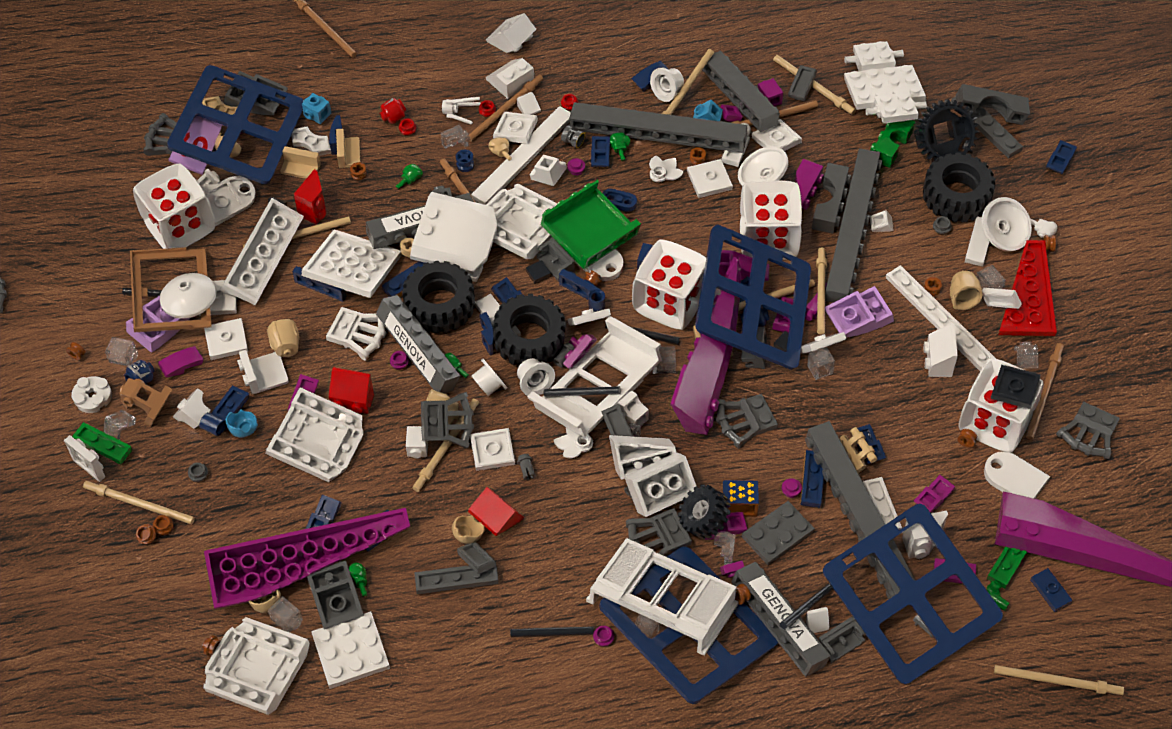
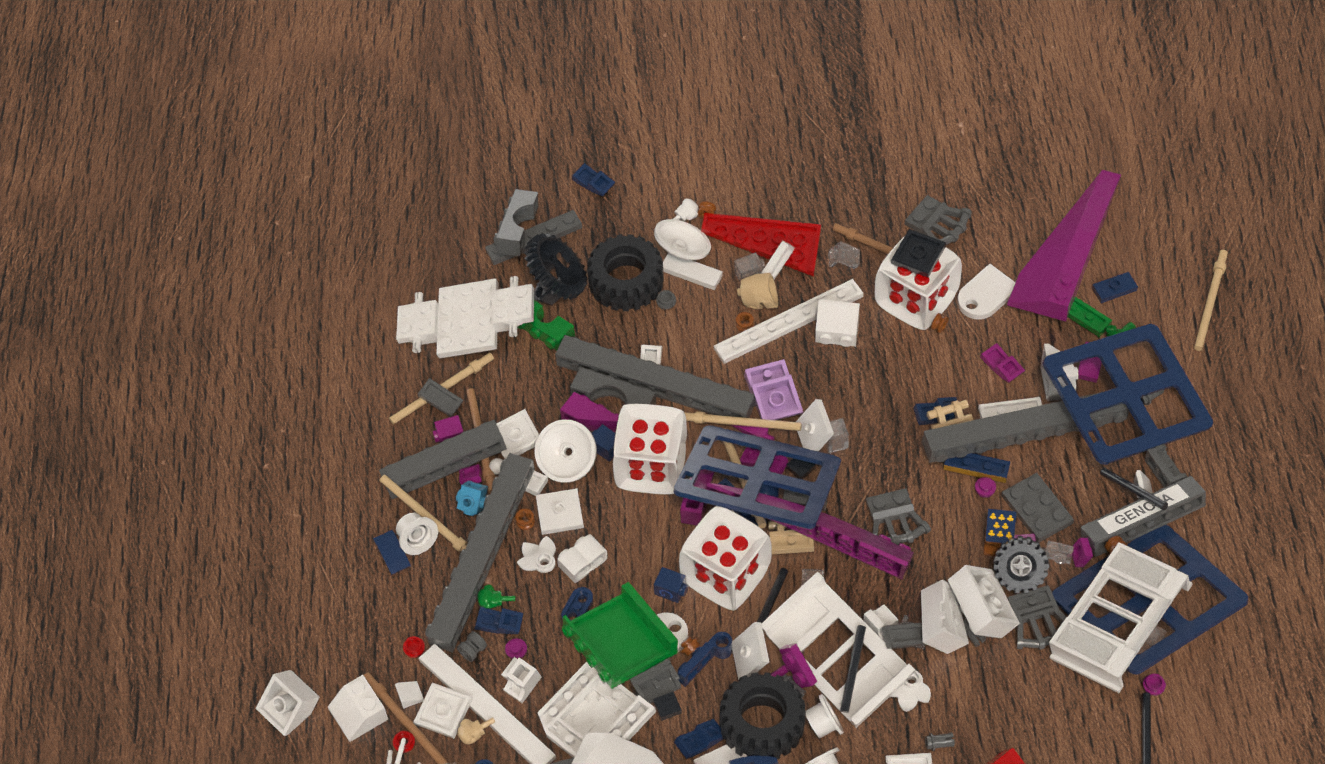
camera: 80 degrees left, 0 degrees up
(665, 196) = (582, 558): none -> white brick

